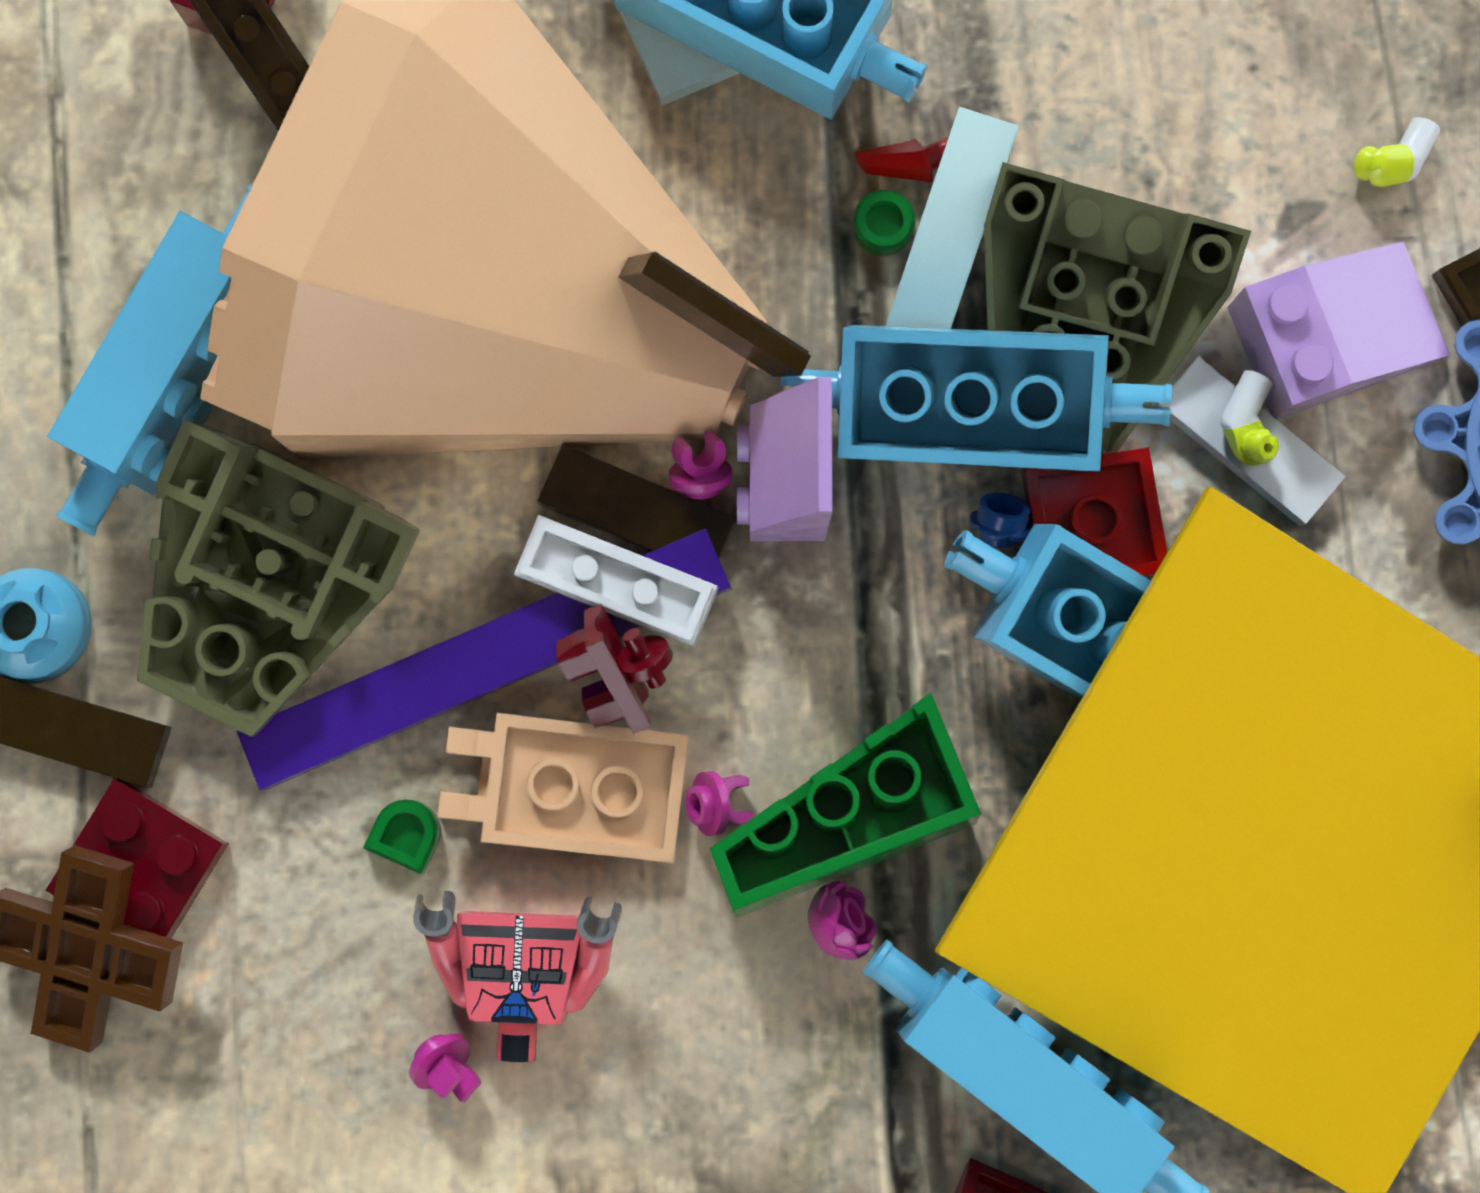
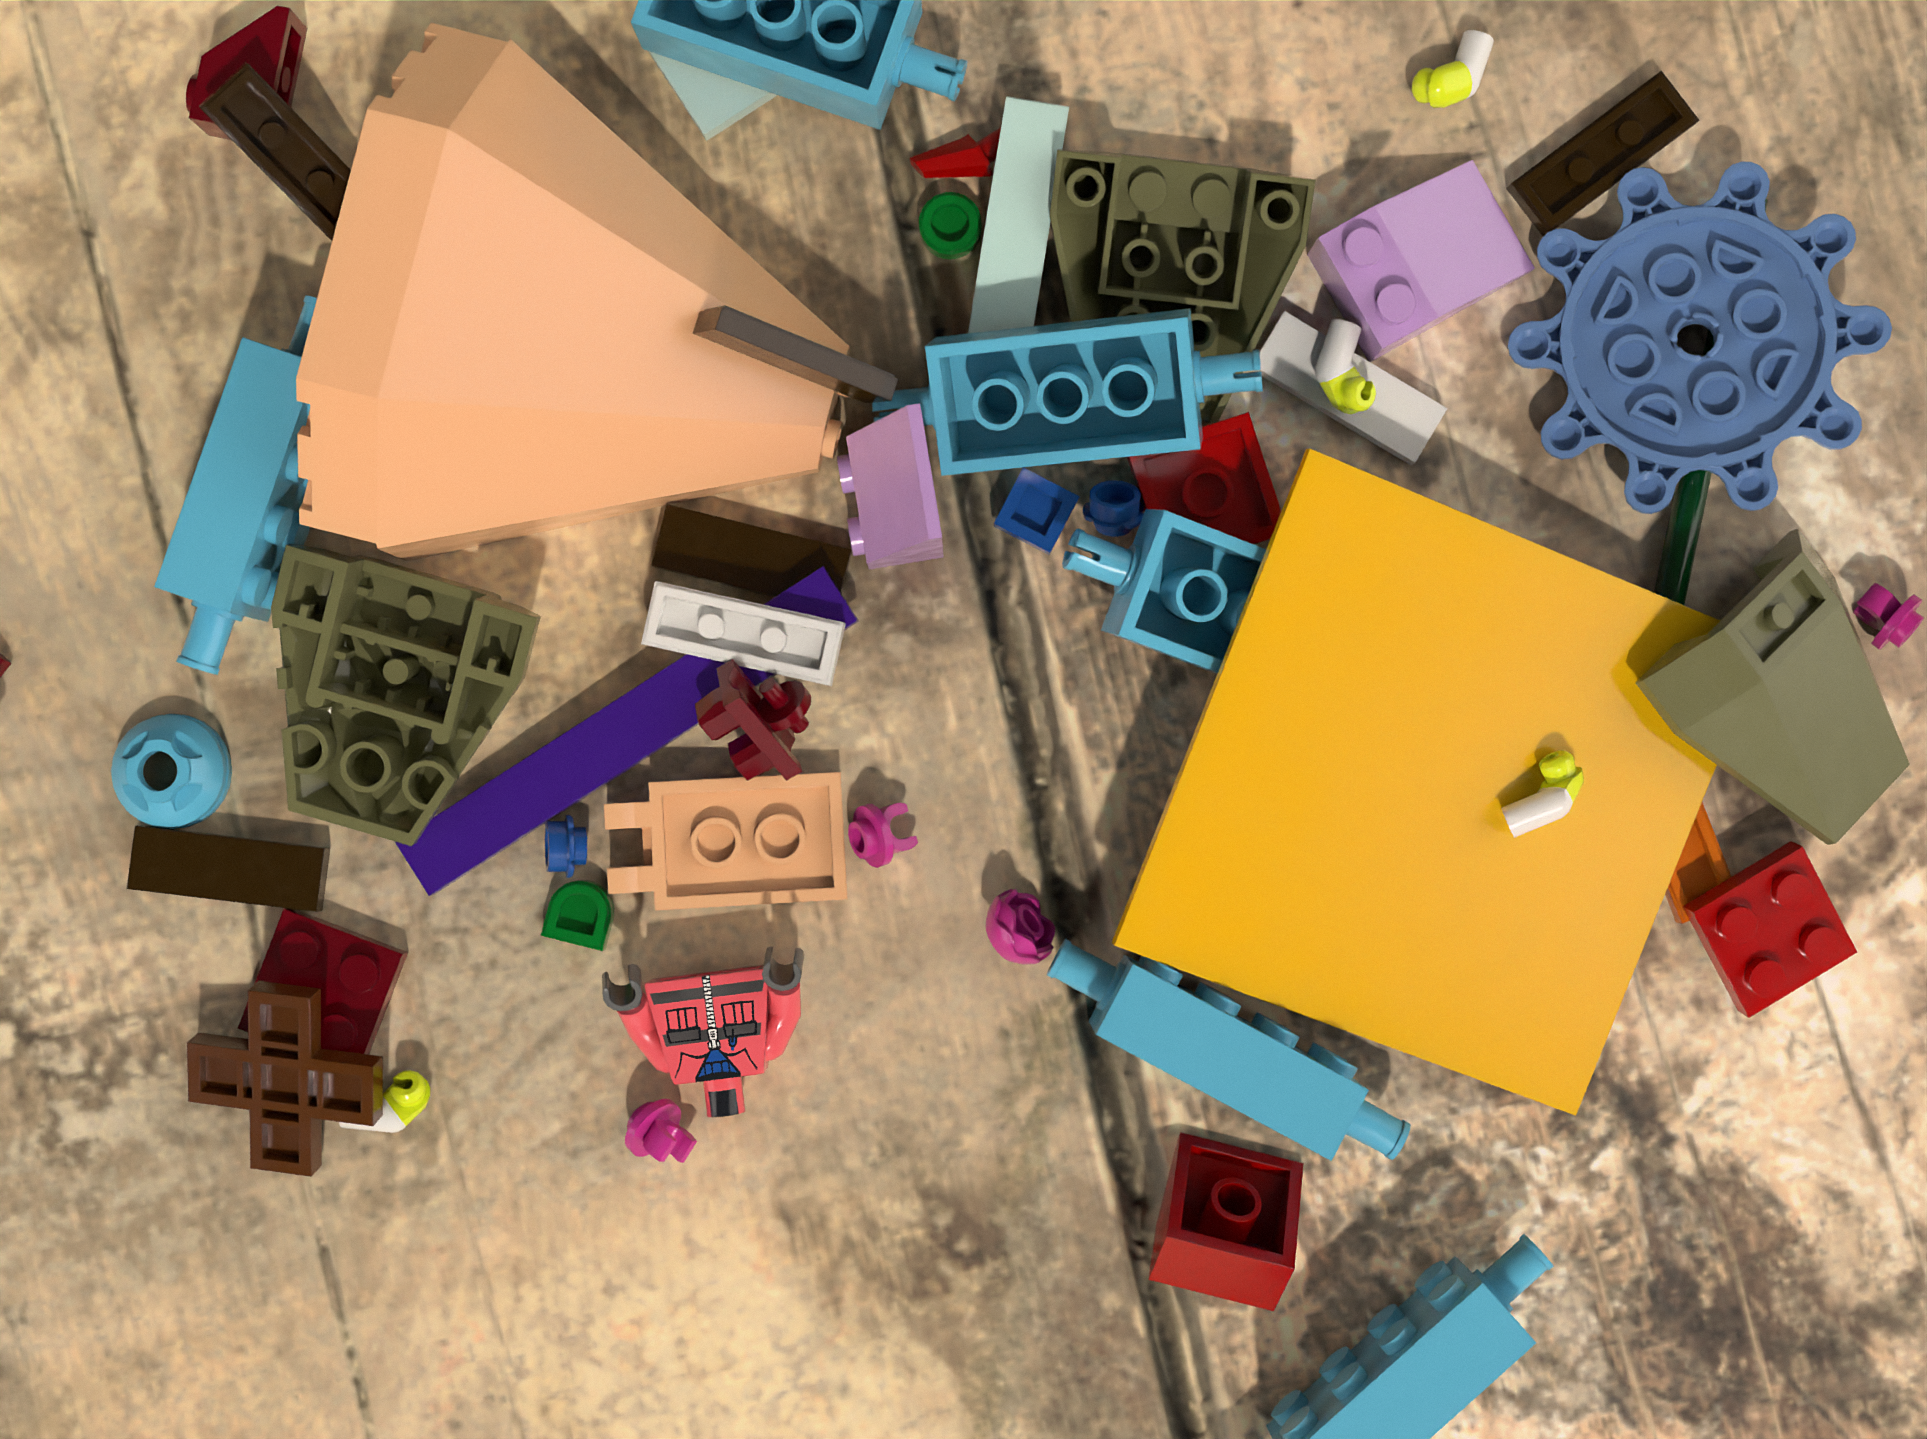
camera: 15 degrees left, 5 degrees up
(192, 993) = (401, 1103): none -> neon yellow arm
(402, 763) = (564, 846): none -> blue plate
(700, 475) = (809, 512): dark pink plate -> none
(862, 809) = (1024, 815): green wedge -> none
(924, 510) = (1036, 511): none -> blue plate
(1403, 878) = (1553, 798): none -> arm

